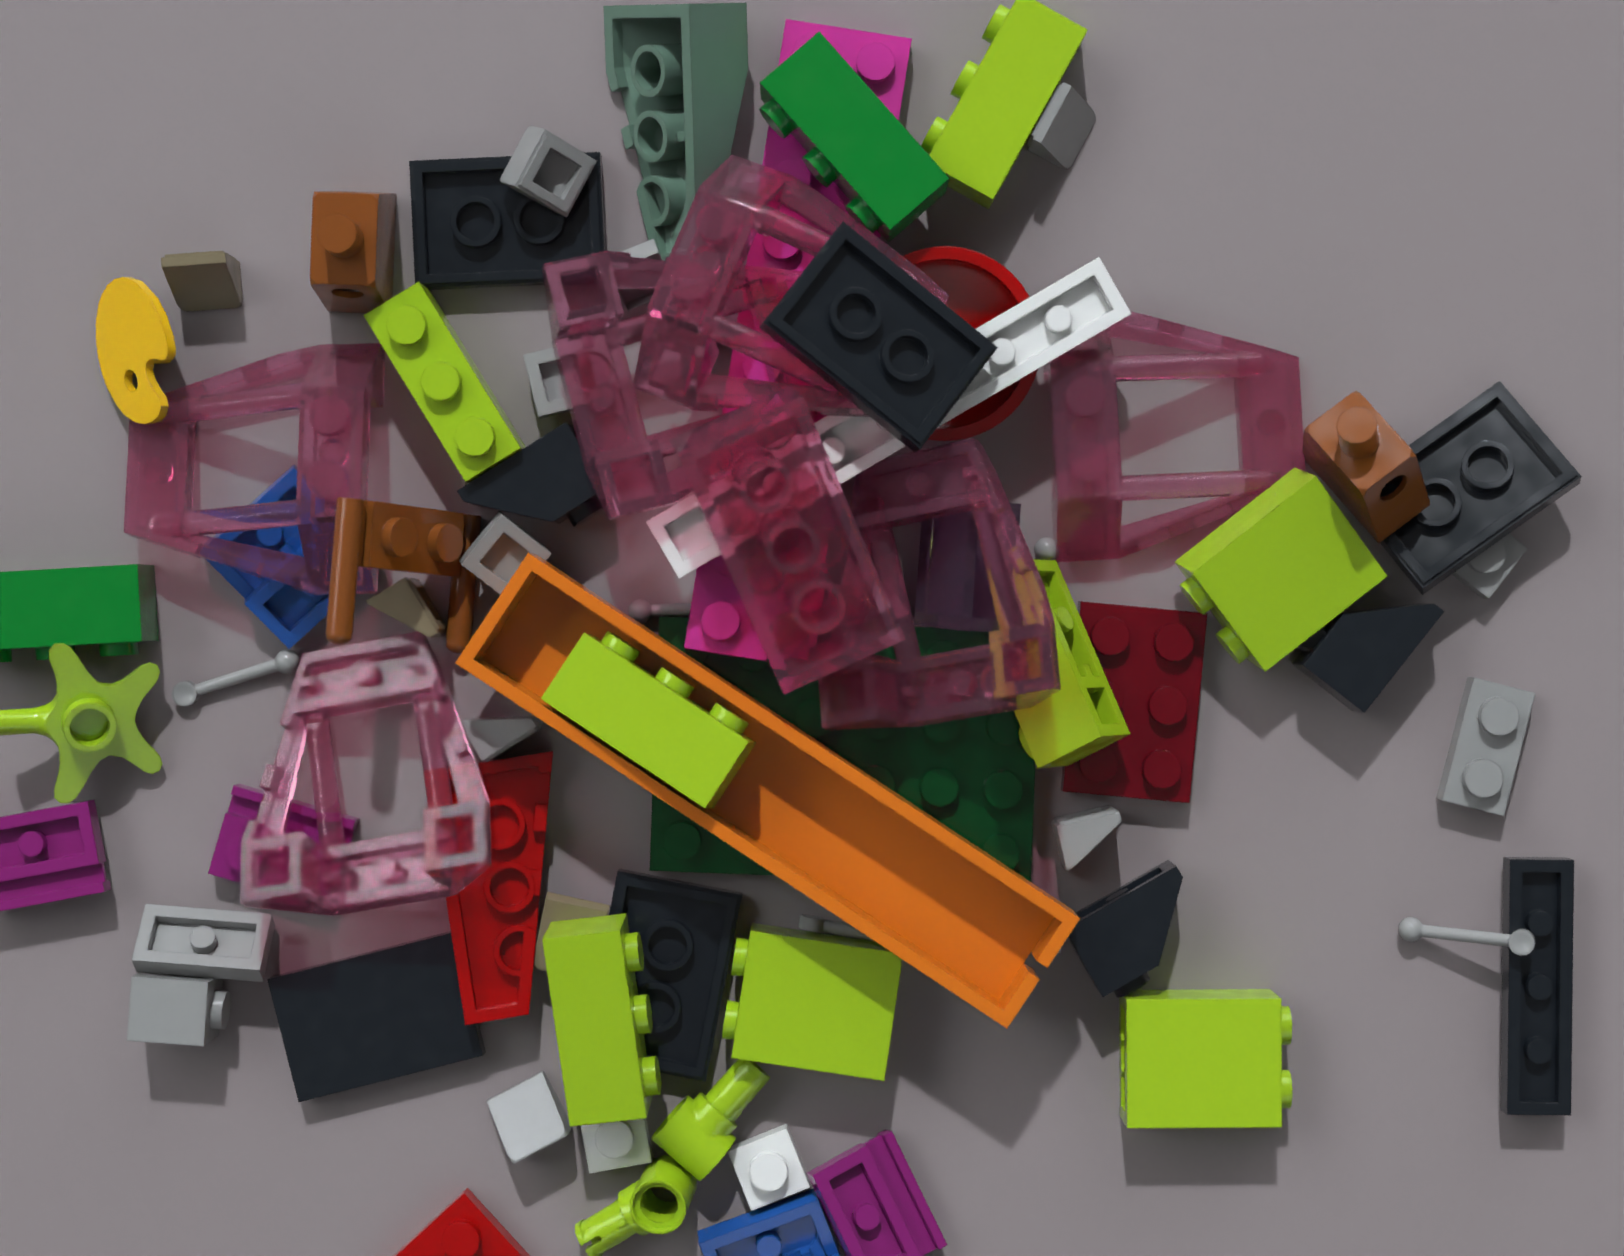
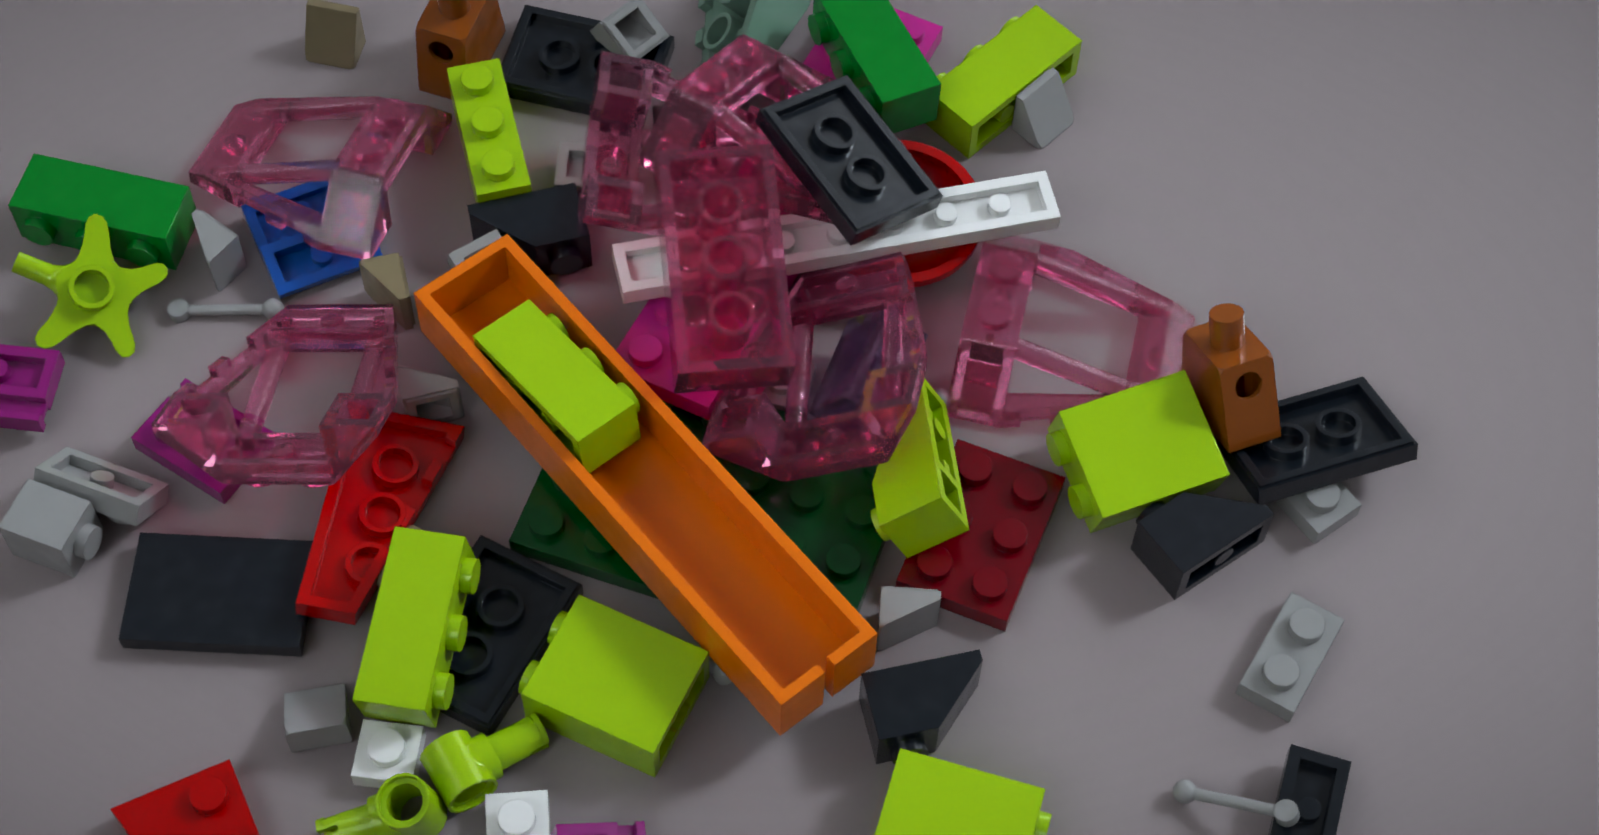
camera: 15 degrees right, 30 degrees down
(129, 340) = (258, 59): yellow piece -> none
(198, 617) = (220, 249): none -> light grey slope
(403, 541) = (402, 211): dark orange plate -> none

